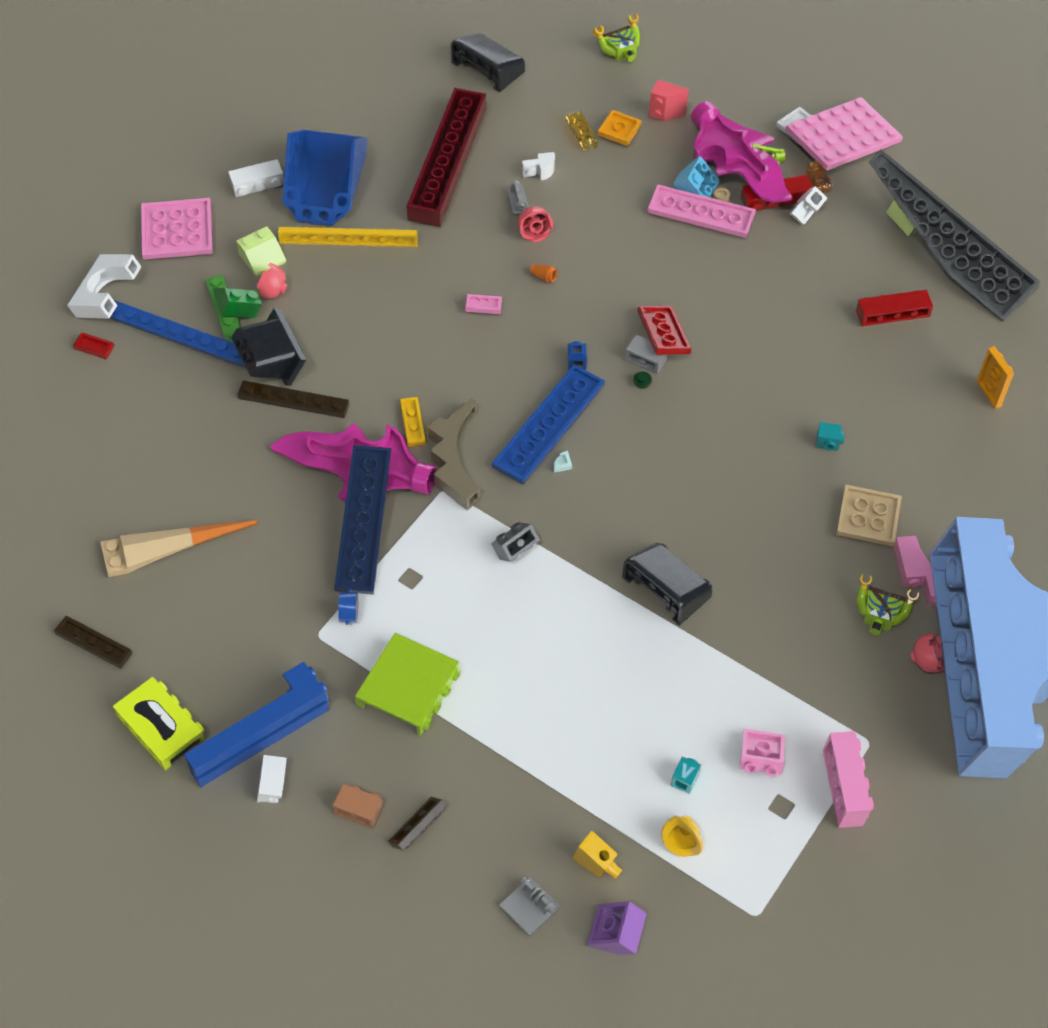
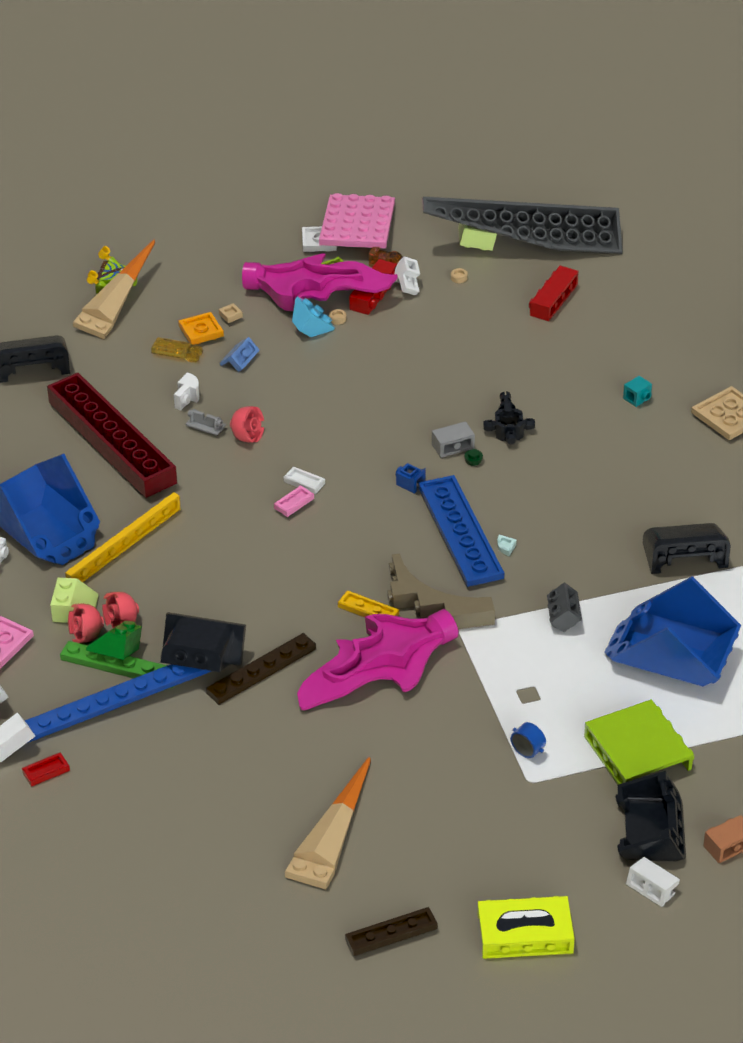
camera: 50 degrees left, 15 degrees down
(242, 271) = (84, 623): none -> coral cylinder
(262, 728) = (594, 813): blue brick -> none
(334, 745) = (652, 819): none -> black windscreen
(363, 519) = (450, 681): dark blue plate -> none
(515, 295) = (300, 477): none -> white tile
(538, 639) = (677, 635): none -> blue windscreen
(544, 272) = (302, 449): orange cone -> none
(580, 61) = (102, 311): none -> tan plate
(614, 169) = (241, 354): none -> medium blue panel
(655, 132) = (230, 313): none -> tan plate
(664, 330) = (443, 414): red tile -> none
(668, 101) = (211, 285): coral slope -> none
(701, 211) = (342, 334): bright pink plate -> none
(710, 369) = (508, 415): none -> black piece
(853, 236) = (459, 275): none -> tan tile
(995, 377) = (681, 277): light orange plate -> none

